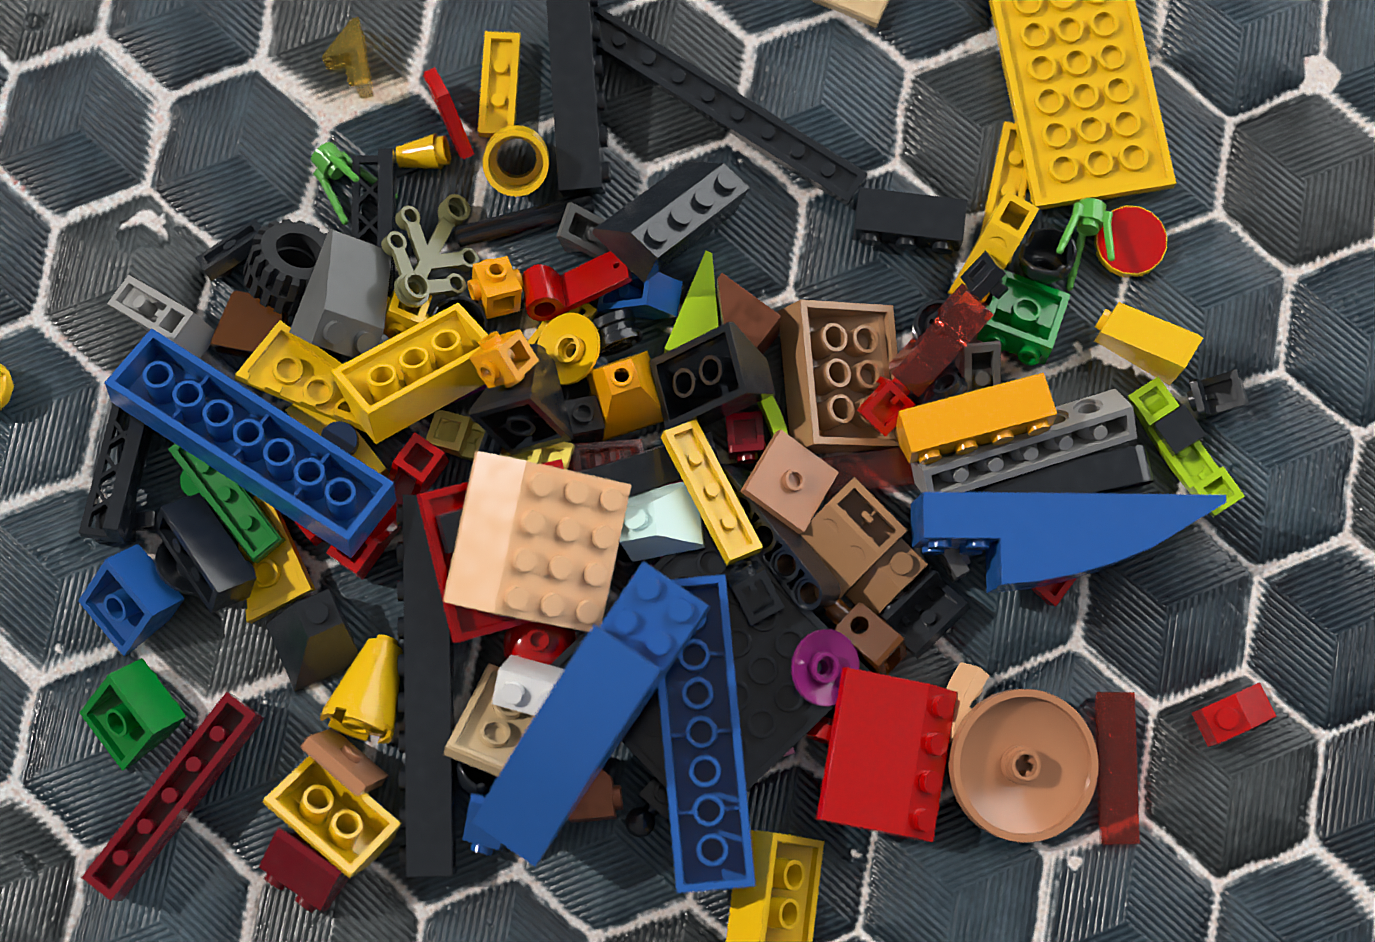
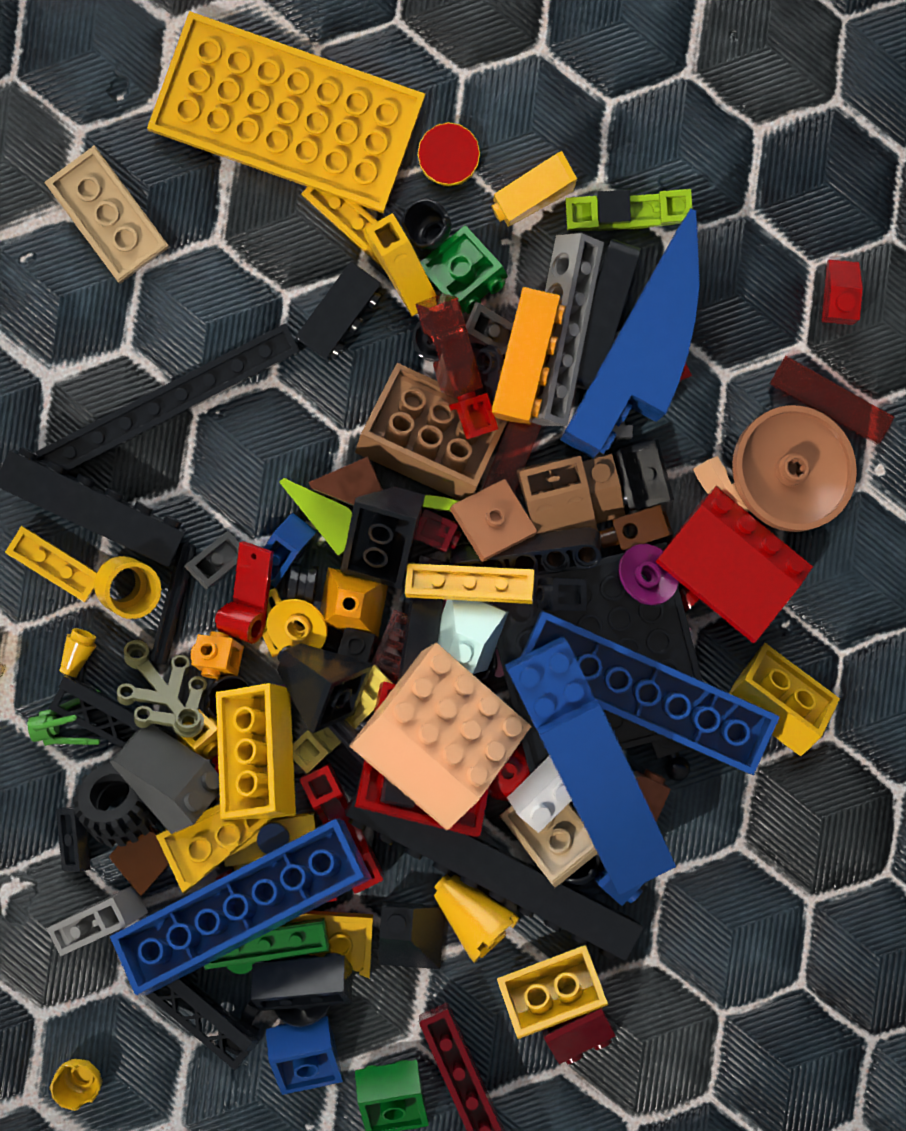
camera: 60 degrees left, 10 degrees up
(344, 761) = (517, 961): nougat plate -> none
(448, 112) = (56, 617): red tile -> none
(503, 358) = (287, 685): light orange brick -> none
(672, 216) = (237, 493): black slope -> none
(985, 276) = (421, 284): black tile -> none
(1089, 217) = (415, 177): bright green plant -> none
(1217, 394) = (602, 161): black bracket -> none

